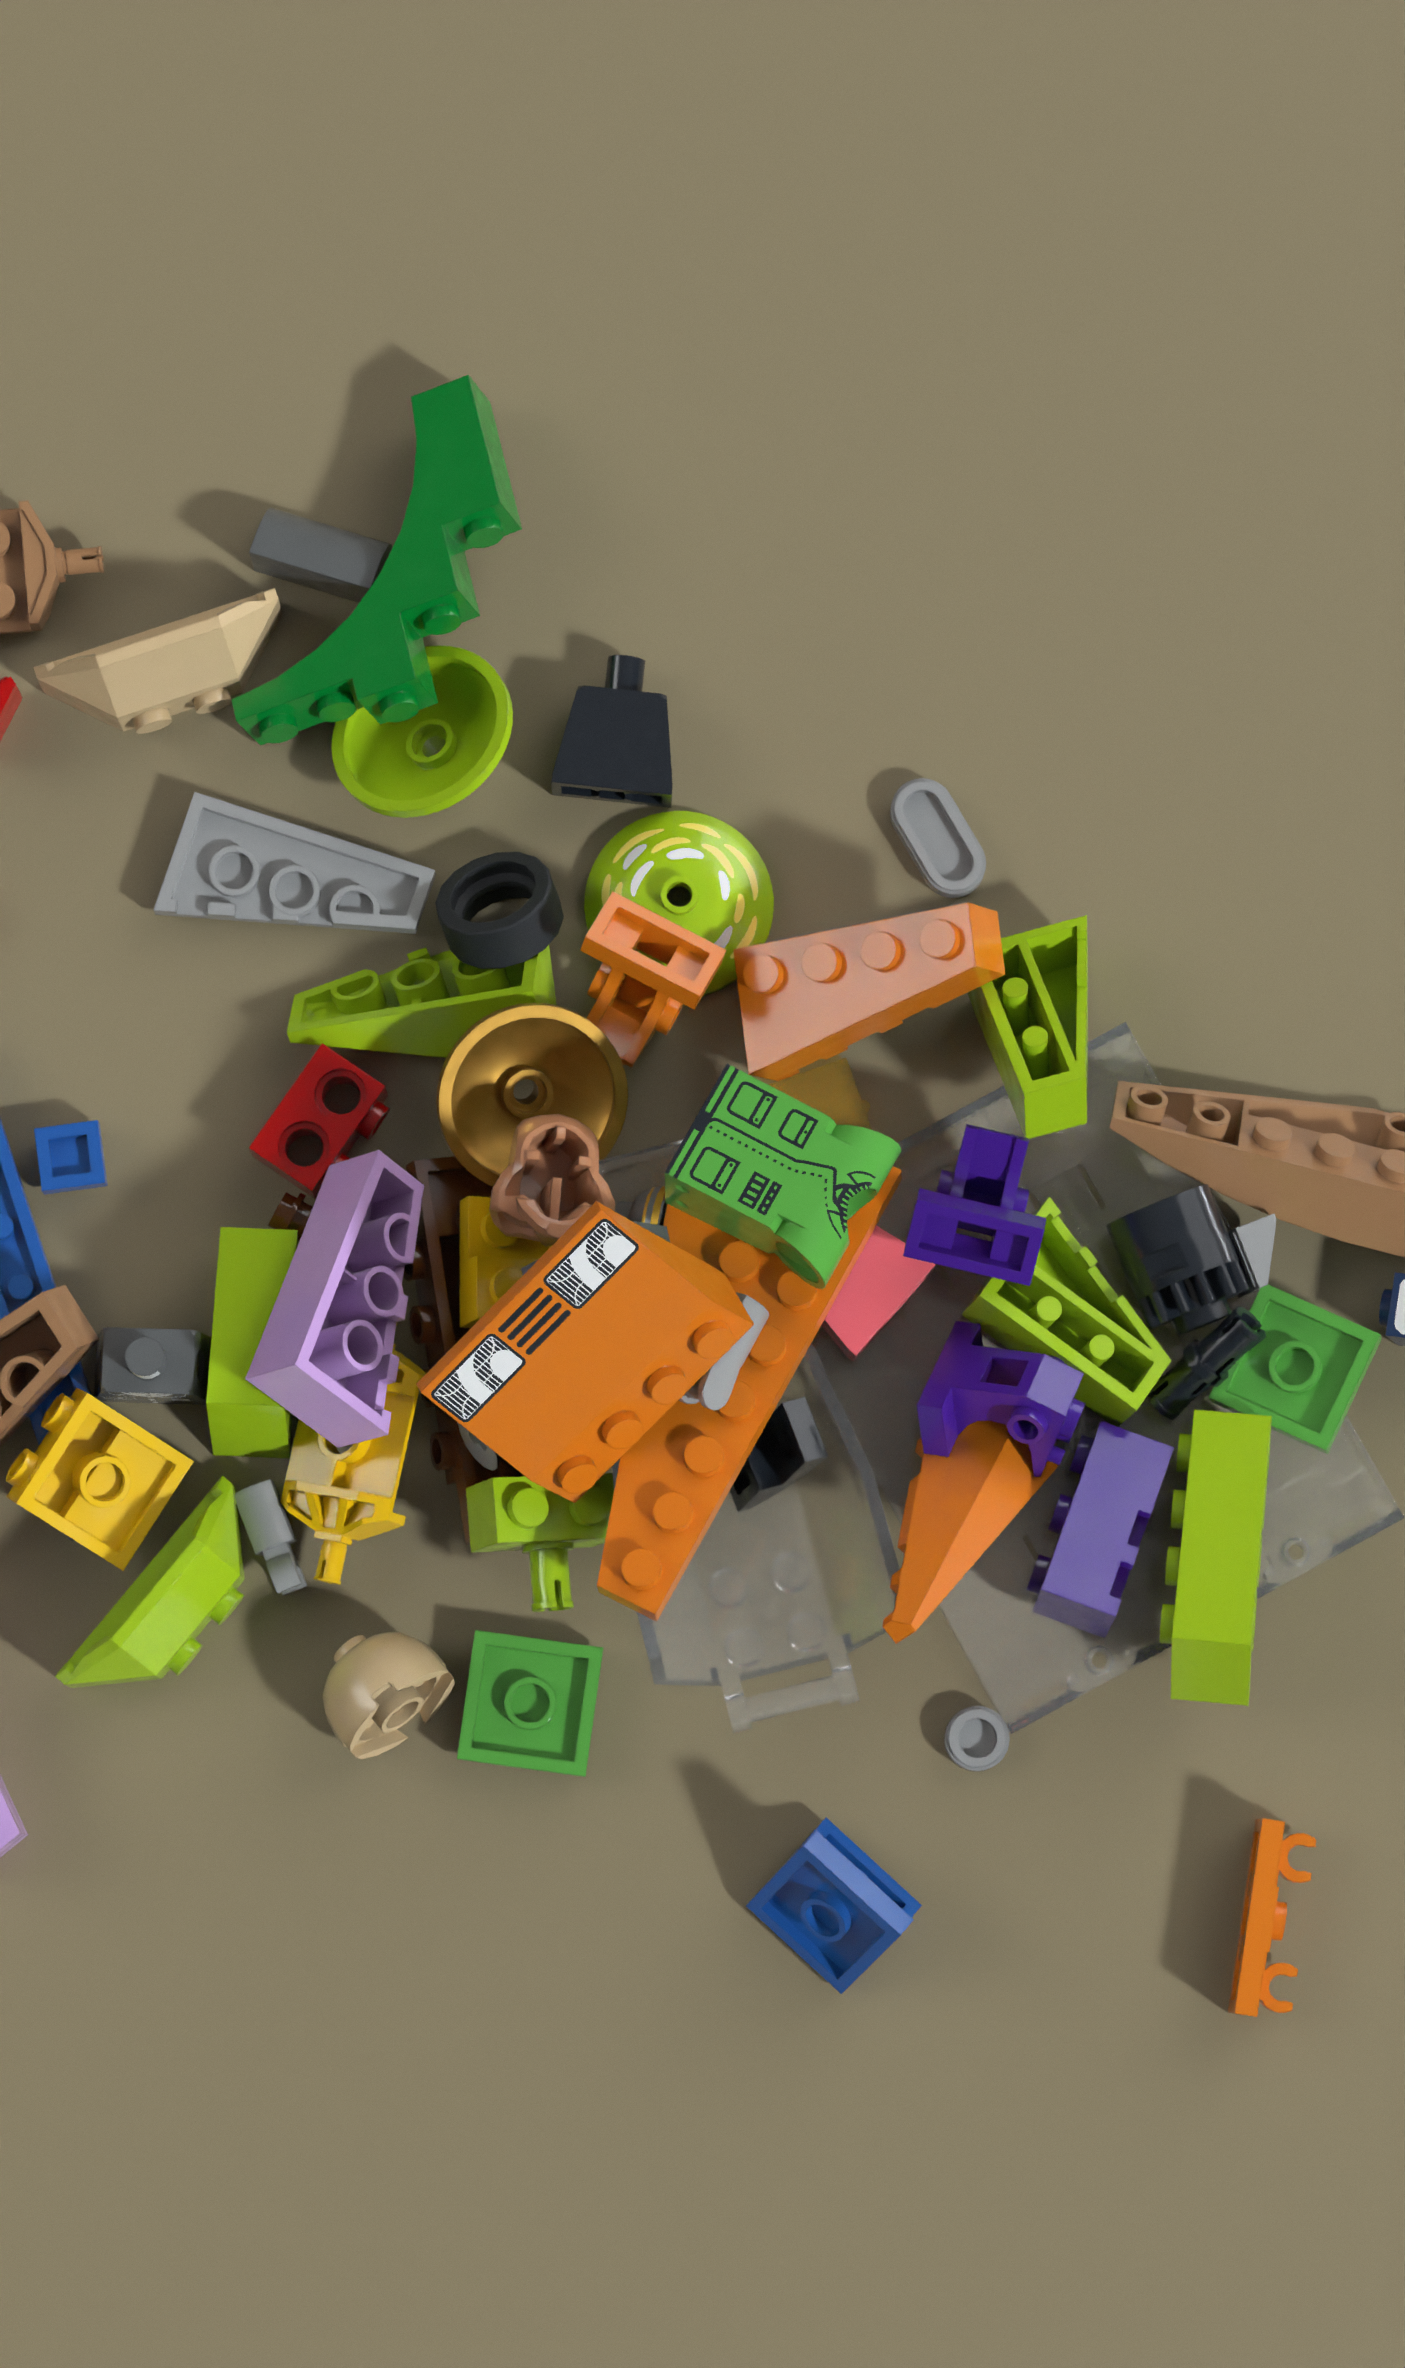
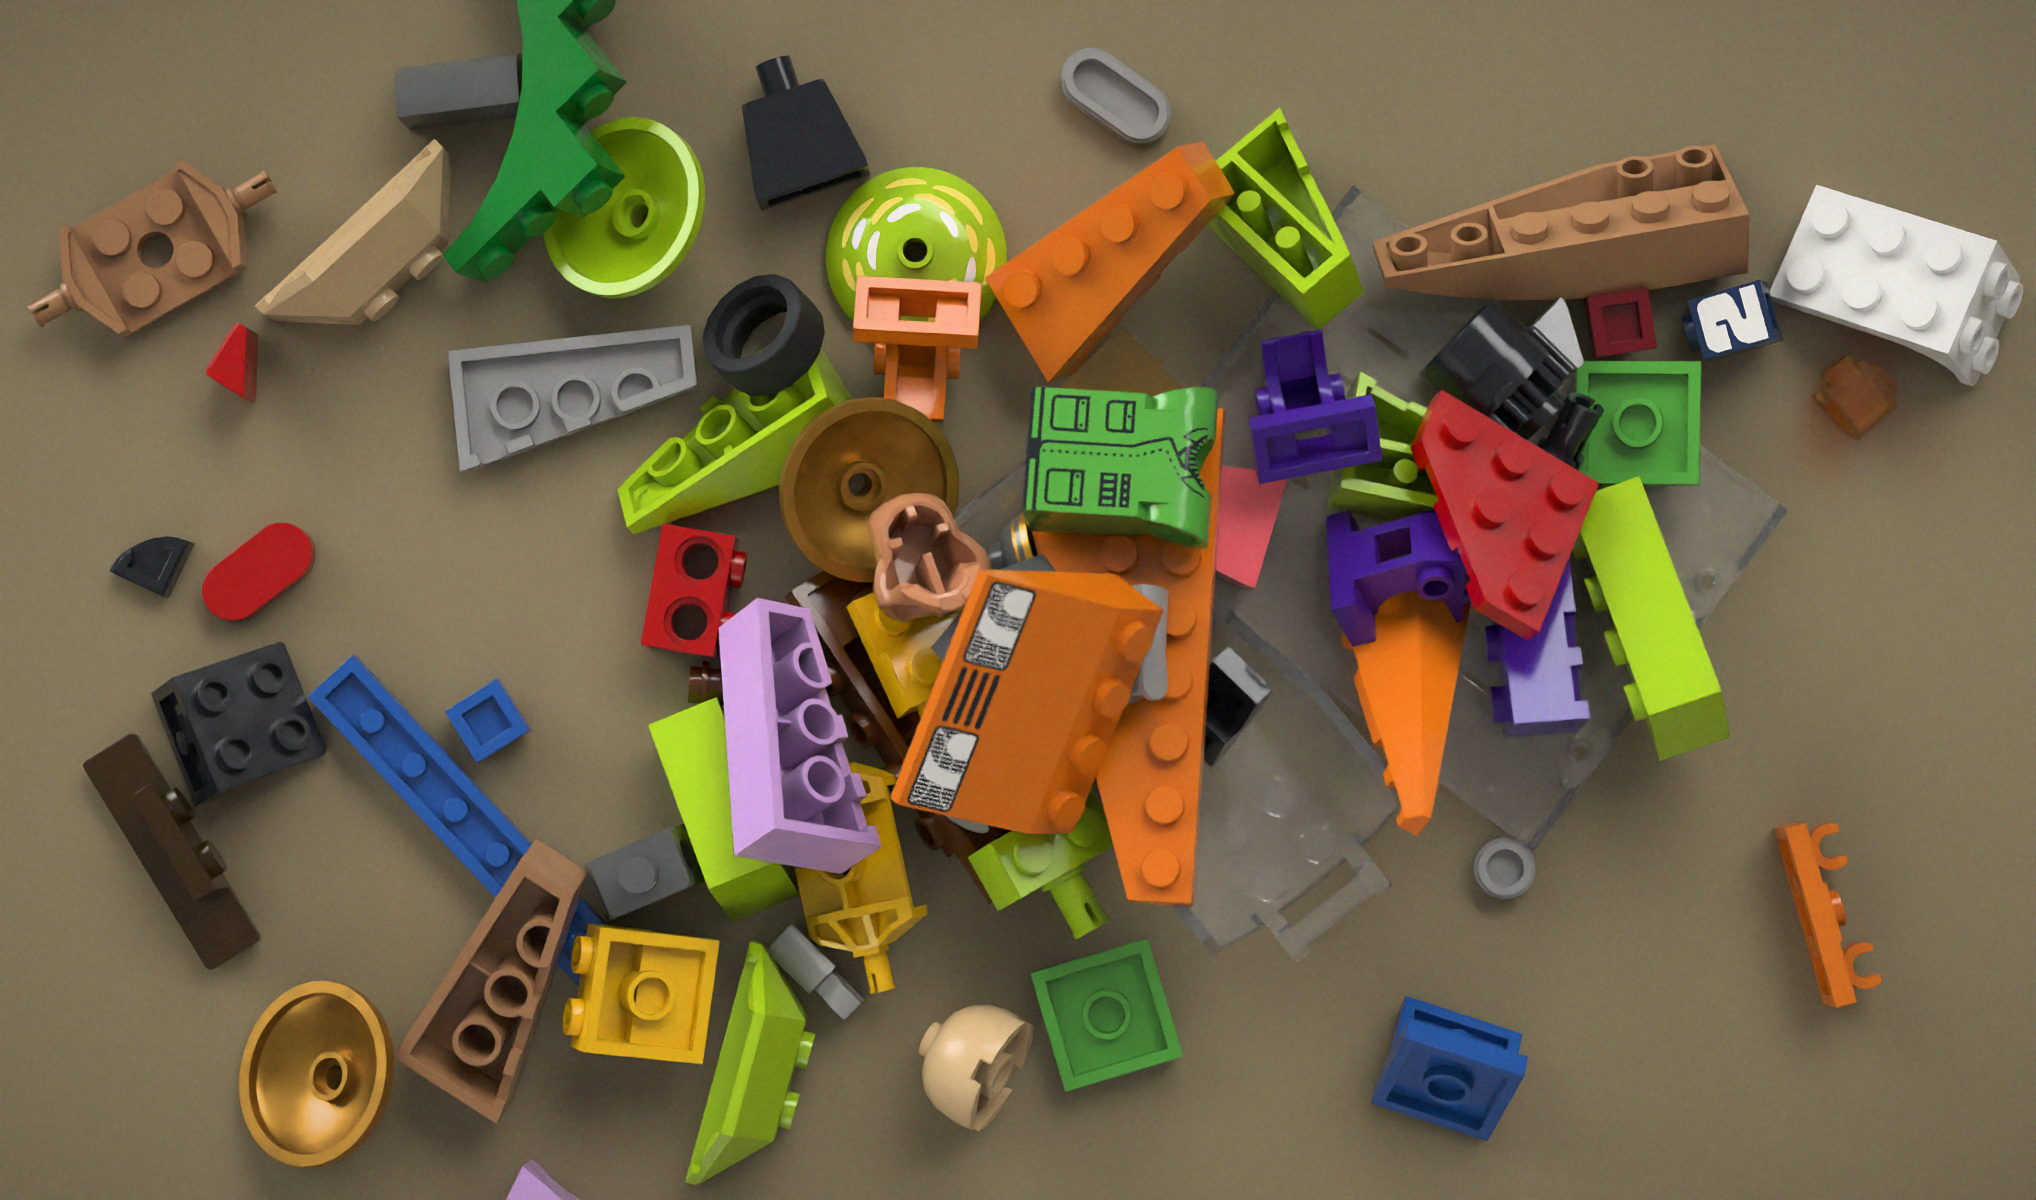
camera: 20 degrees left, 5 degrees up
(1123, 1384) = (1503, 509): none -> red plate
(1321, 1265) = (1620, 323): none -> dark red tile

